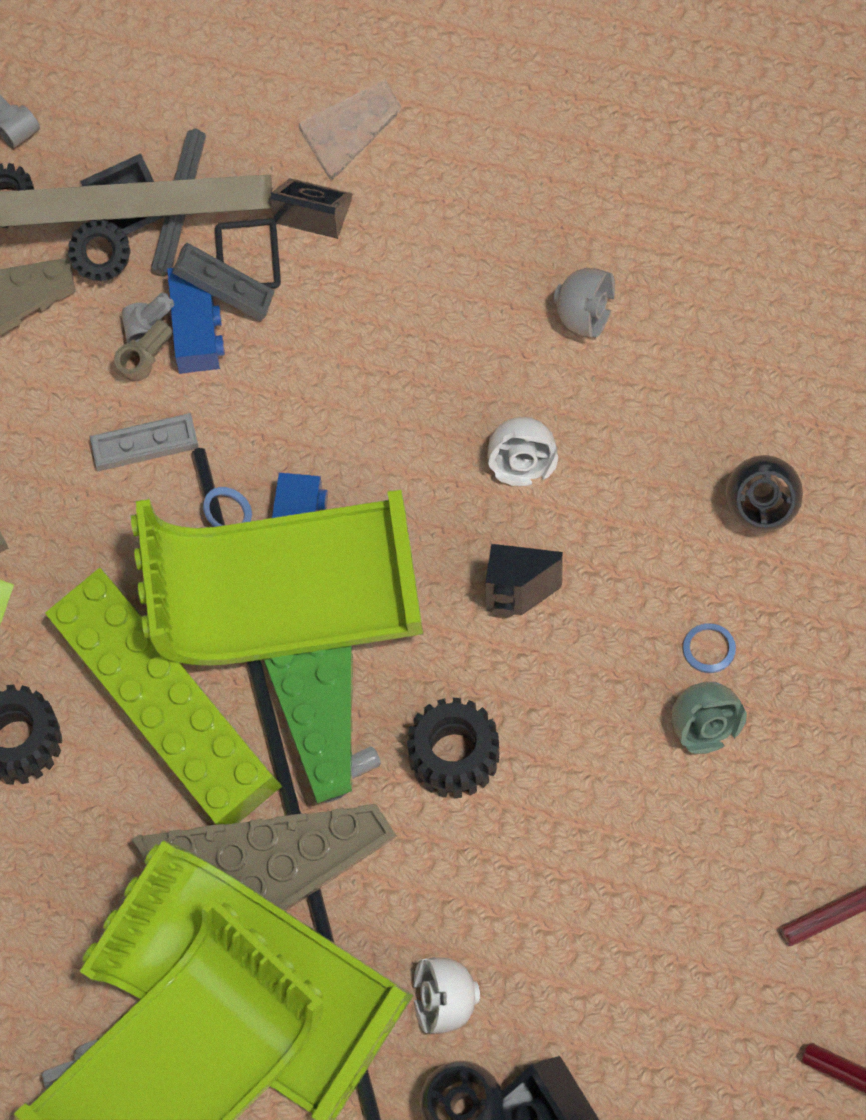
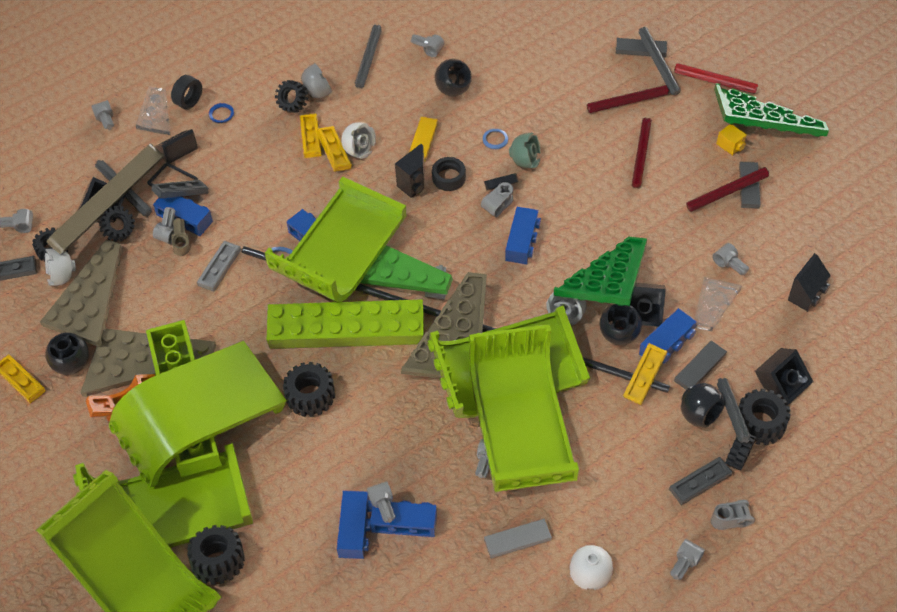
camera: 55 degrees left, 10 degrees down
(290, 60) = (103, 113): none -> light grey axle
(412, 126) = (181, 86): none -> black tyre
(428, 198) = (220, 105): none -> blue piece
(453, 720) = (463, 226): black tyre -> none
(472, 444) = (333, 148): none -> yellow tile
(487, 374) = (310, 139): none -> yellow tile
(531, 1027) = (609, 277): none -> green wing
(533, 831) = (522, 235): none -> blue brick
(538, 298) = (283, 96): none -> black tyre
(571, 606) = (448, 163): none -> black tyre
(572, 744) = (498, 199): none -> light grey piece
(614, 541) = (424, 134): none -> yellow tile
(616, 722) = (493, 183): none -> black beam
(719, 331) = (368, 56): none -> dark grey axle
(820, 406) = (431, 45): none -> light grey axle

